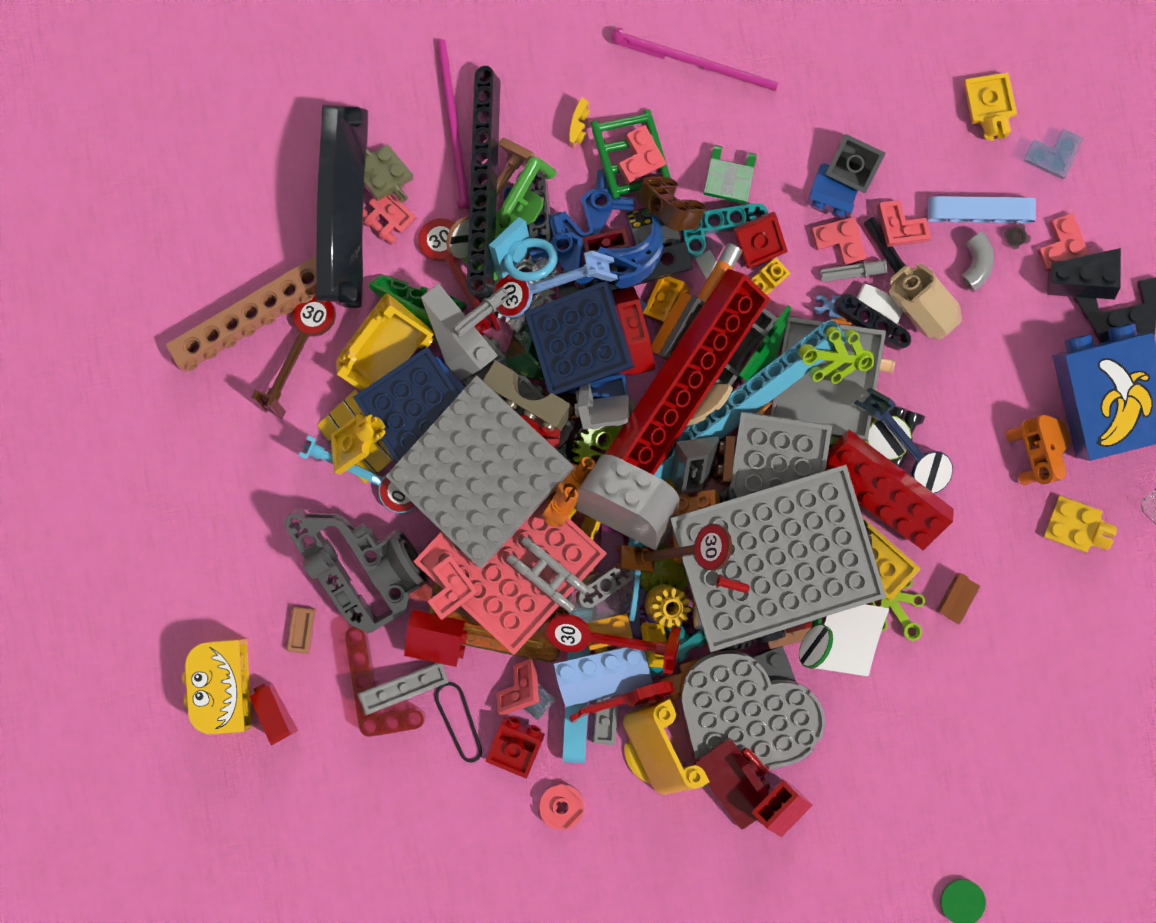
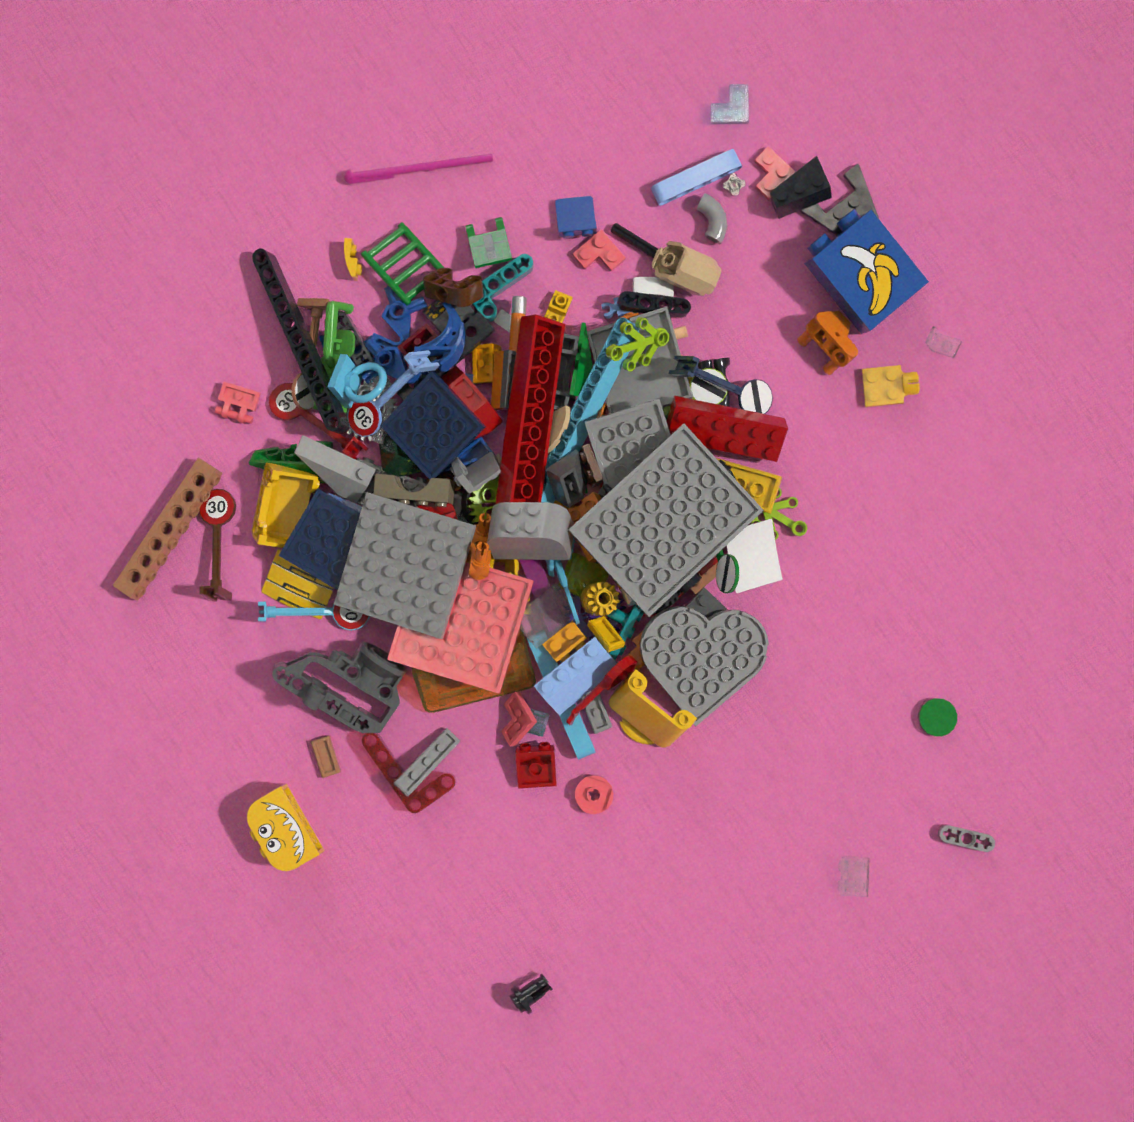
camera: 25 degrees left, 0 degrees up
(272, 713) = (334, 831): red slope -> none
(341, 205) = (197, 411): black panel -> none
(353, 439) = (295, 589): yellow plate -> none
(386, 174) = (217, 371): olive plate -> none
(435, 639) = (433, 711): red brick -> none
(457, 591) = (431, 663): coral plate -> none
(464, 202) = (292, 363): dark pink bar -> none
(469, 717) = (473, 772): black piece -> none
(480, 312) = (349, 435): light grey axle -> none
(549, 589) = (484, 623): light grey piece -> none
(573, 635) = (537, 656): piece -> none
(594, 599) = (546, 592): light grey beam -> none
(646, 156) = (417, 261): coral plate -> none
(711, 551) = (609, 537): piece -> none
(732, 584) = (640, 557): red piece -> none
(734, 781) = (720, 710): dark red bracket -> none
(748, 754) = (726, 686): red piece -> none
(760, 240) = (536, 282): red tile -> none
(782, 808) = (763, 712): red brick -> none
(853, 271) = (621, 271): light grey axle -> none
(855, 163) = (581, 187): dark grey slope -> none
(897, 229) = (640, 224): coral plate -> none
(958, 598) = (822, 485): dark orange panel -> none
(991, 104) = (664, 91): yellow plate -> none

